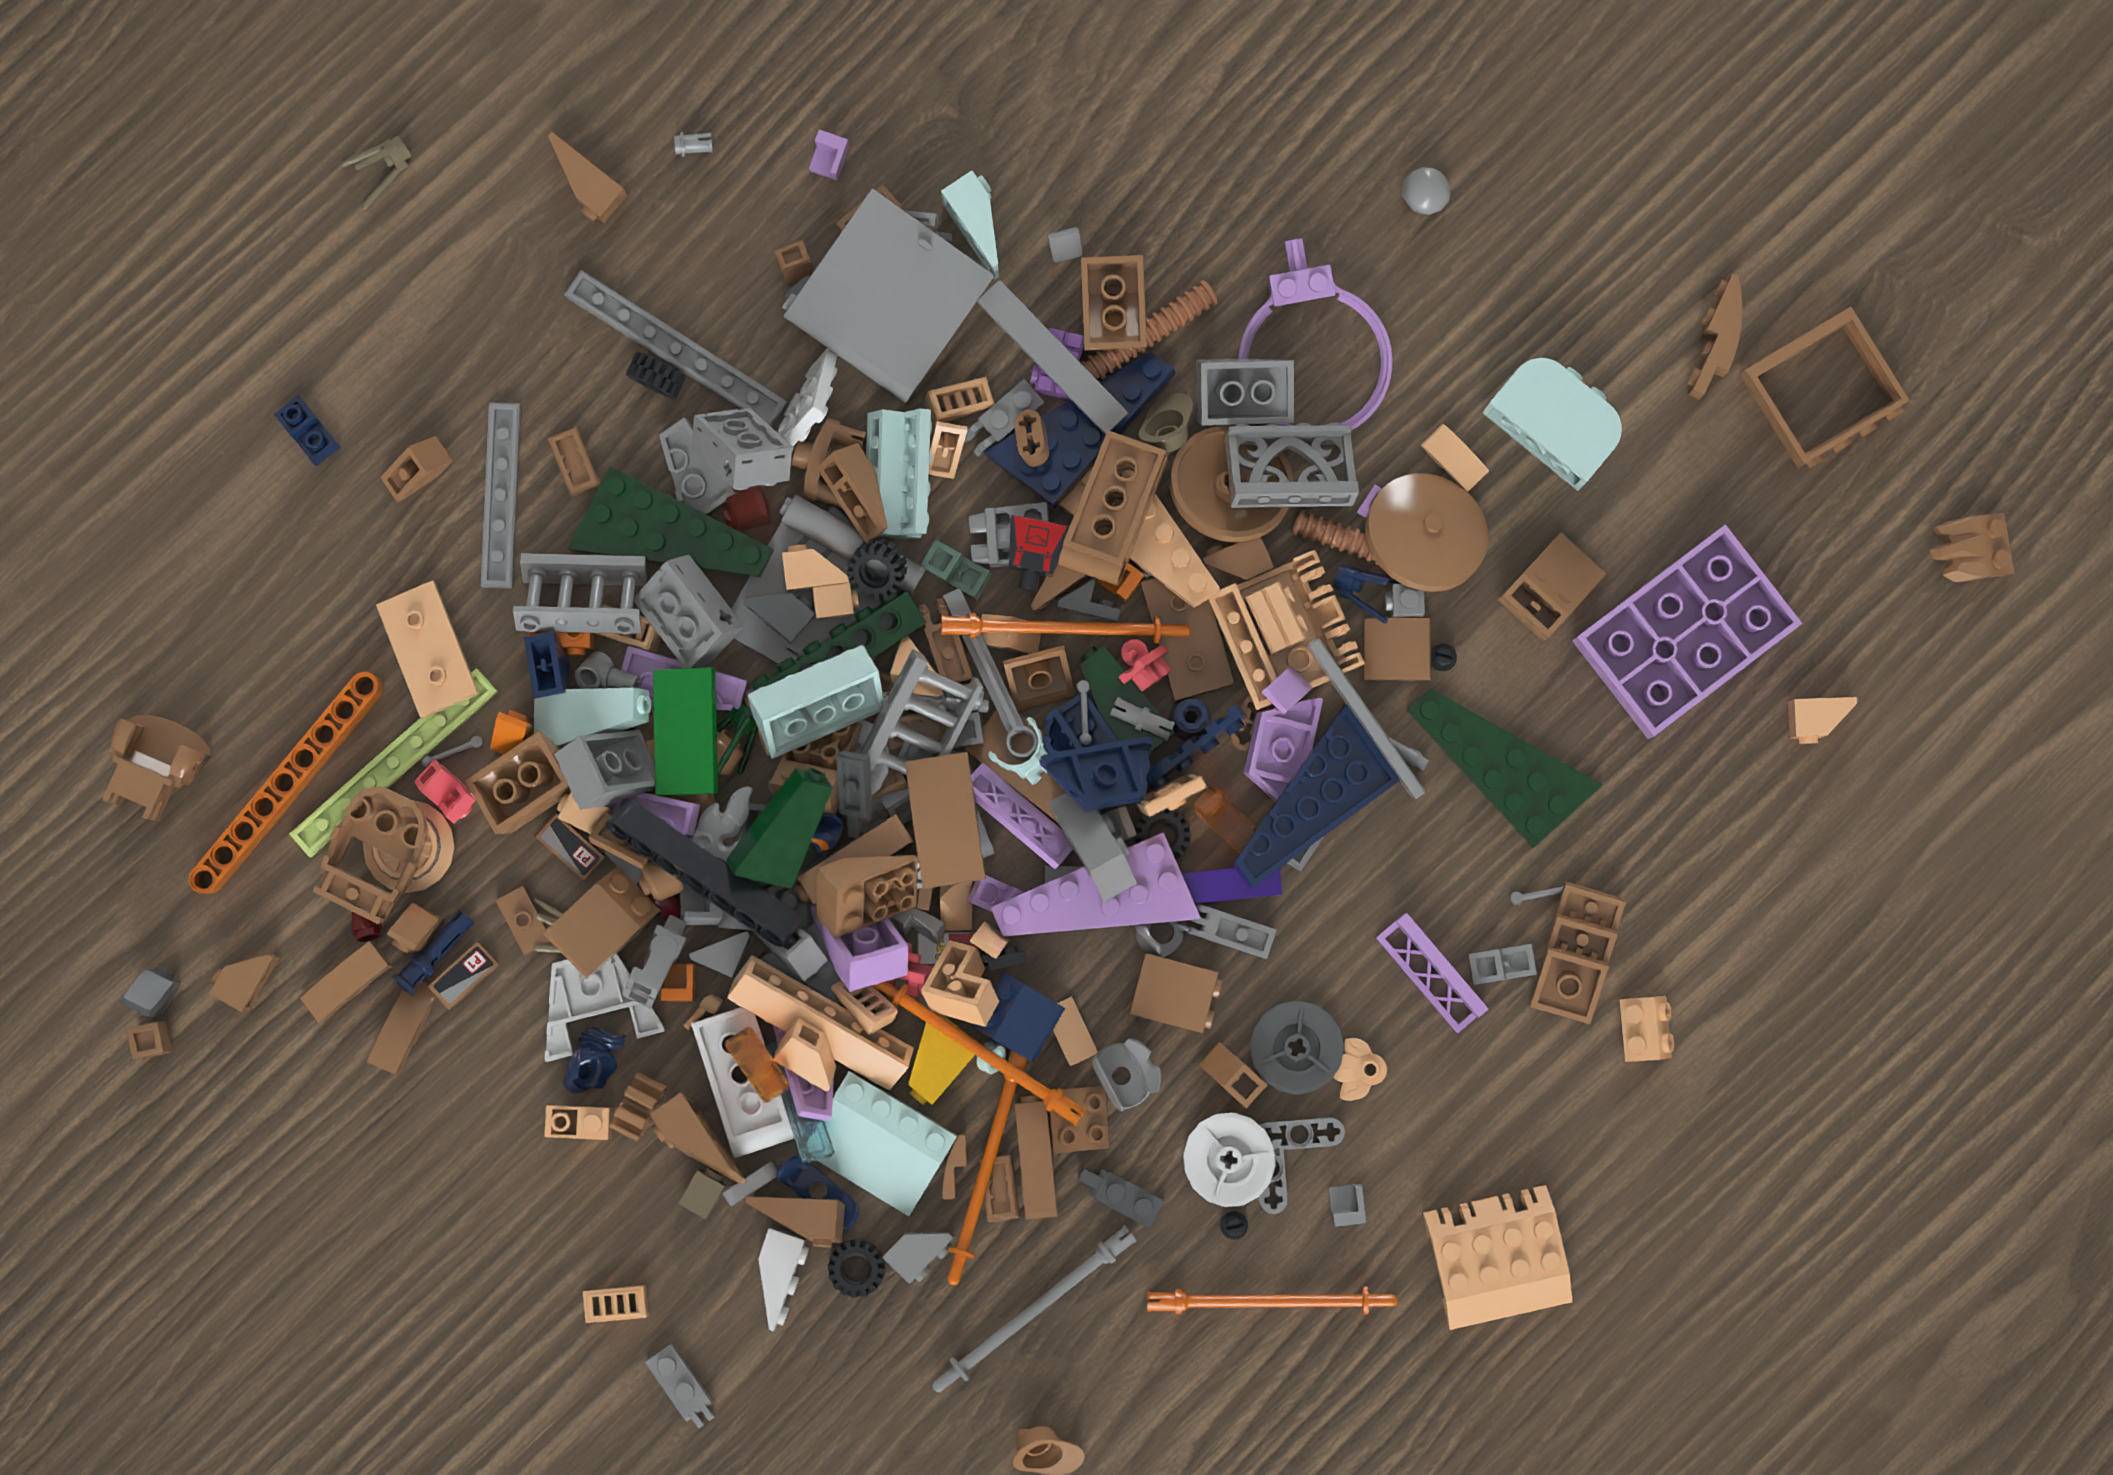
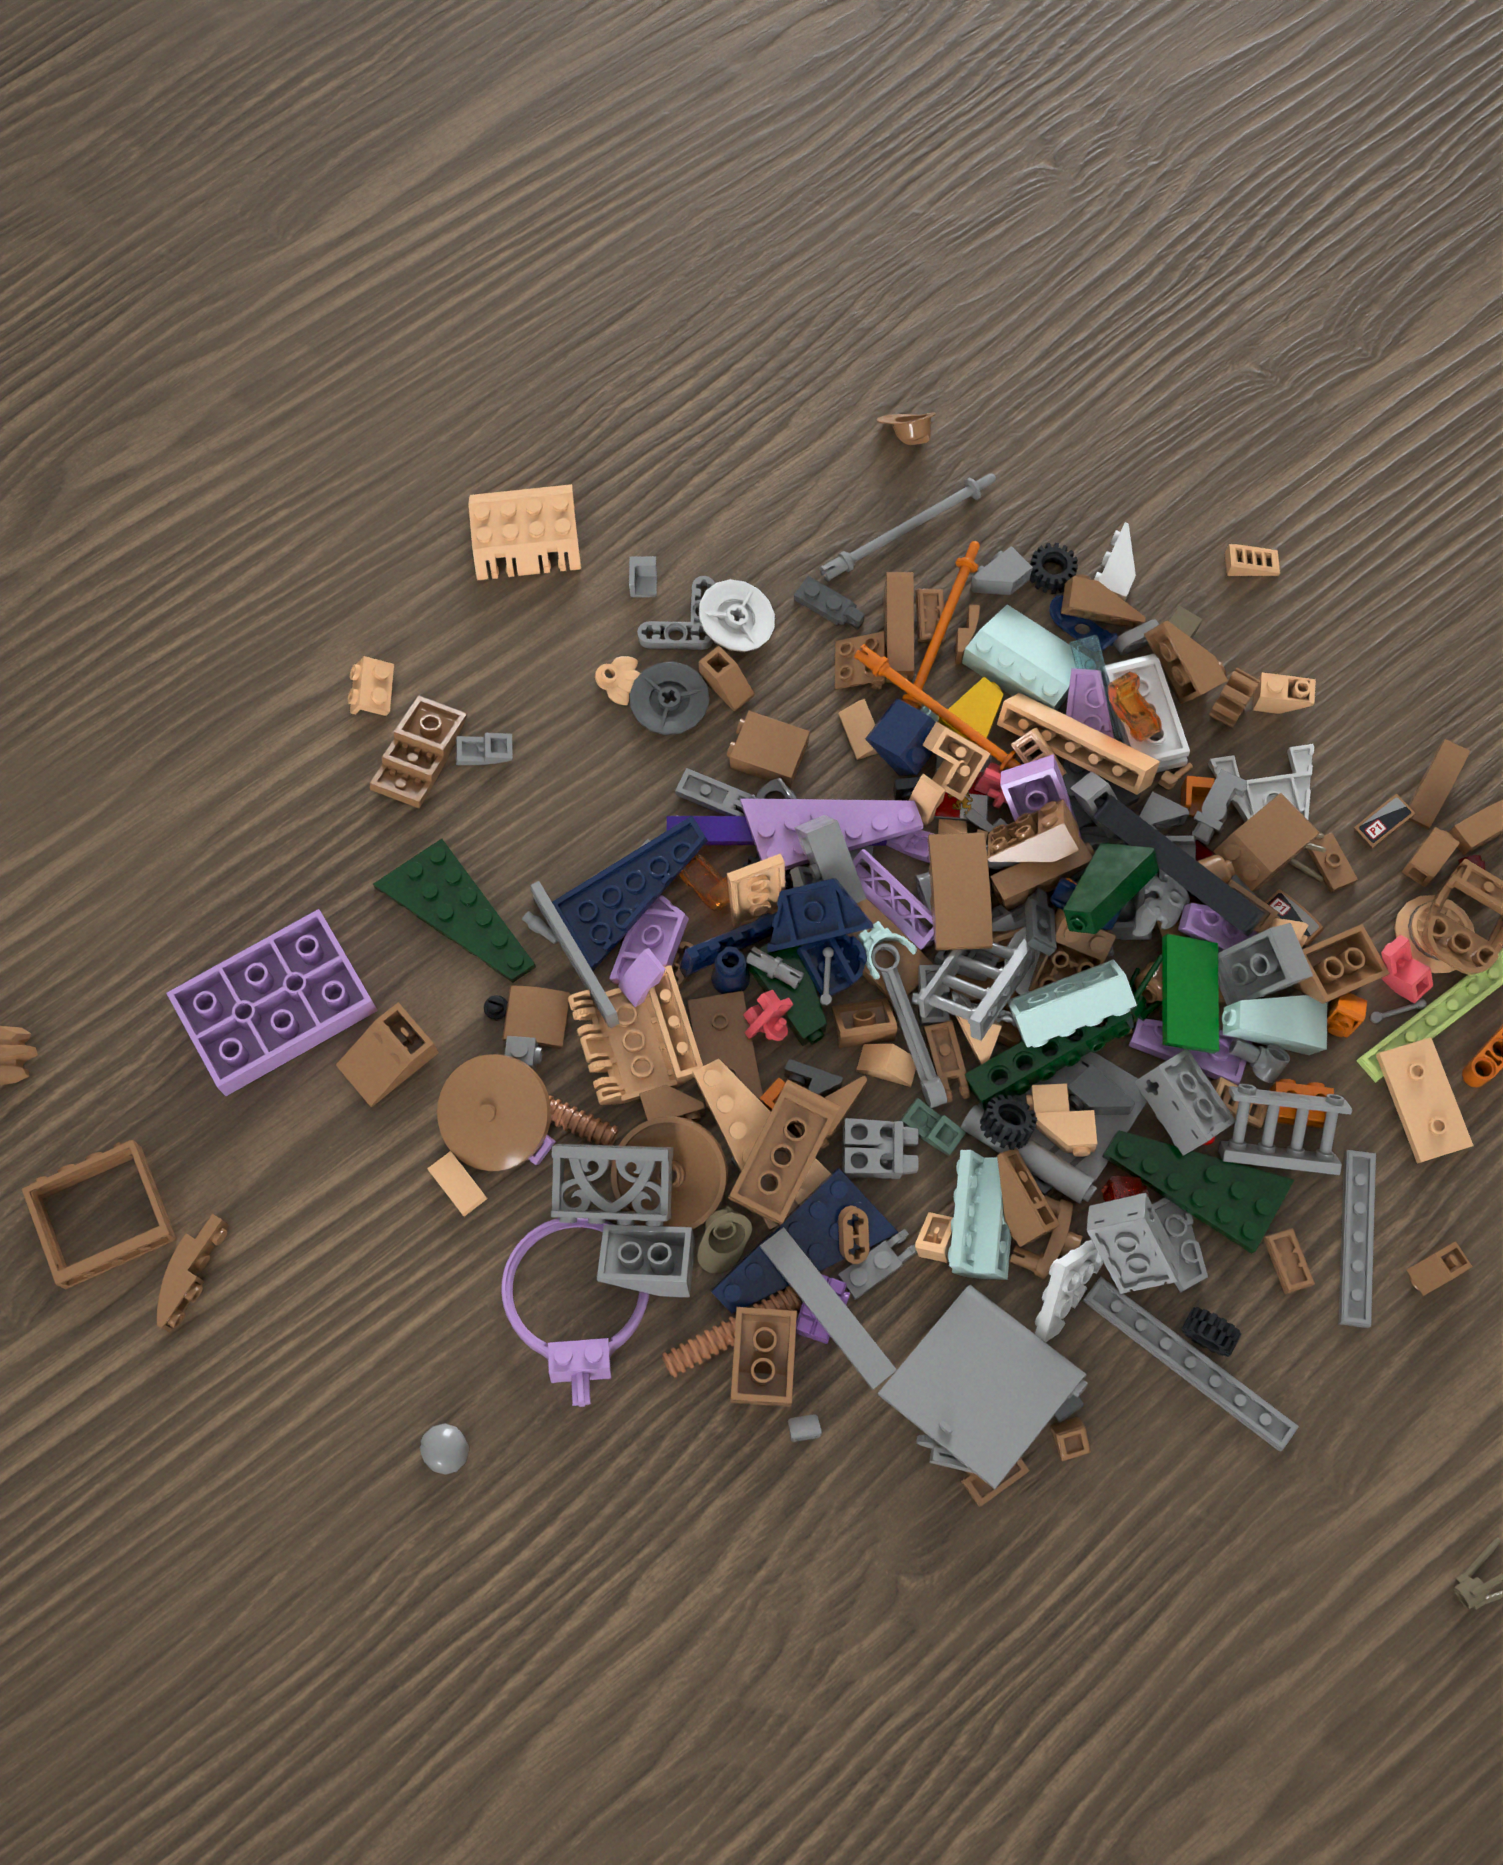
camera: 175 degrees left, 15 degrees down
(424, 962) = (1420, 830): dark blue pin -> none
(547, 664) = (1315, 1065): dark blue slope -> none
(592, 187) = (1276, 1538): medium nougat slope -> none
(592, 1062) = (1272, 742): dark blue hair -> none
(681, 1385) = (1199, 500): light grey hinge -> none
(693, 143) = (1169, 1571): light grey pin -> none
(807, 1054) = (1091, 714): light nougat slope -> none
(829, 155) = (1032, 1544): lavender panel -> none
(950, 414) = (944, 1289): light nougat slope -> none
(970, 208) = (893, 1462): light aqua slope -> none
(974, 625) = (921, 1061): orange bar -> none
(1034, 549) = (859, 1125): torso -> none
(1143, 1075) = (819, 677): light grey piece -> none
(1180, 1301) = (787, 521): orange bar -> none
(1234, 1225) = (738, 572): black piece -> none
(1276, 618) = (643, 1045): light nougat brick -> none
(1352, 579) = (569, 1080): dark blue plant -> none
(1440, 964) = (541, 752): lavender fence -> none
(1517, 898) = (463, 801): light grey hinge -> none
(1557, 419) = (354, 1204): light aqua brick -> none
(1816, 717) = (170, 921): light nougat slope -> none

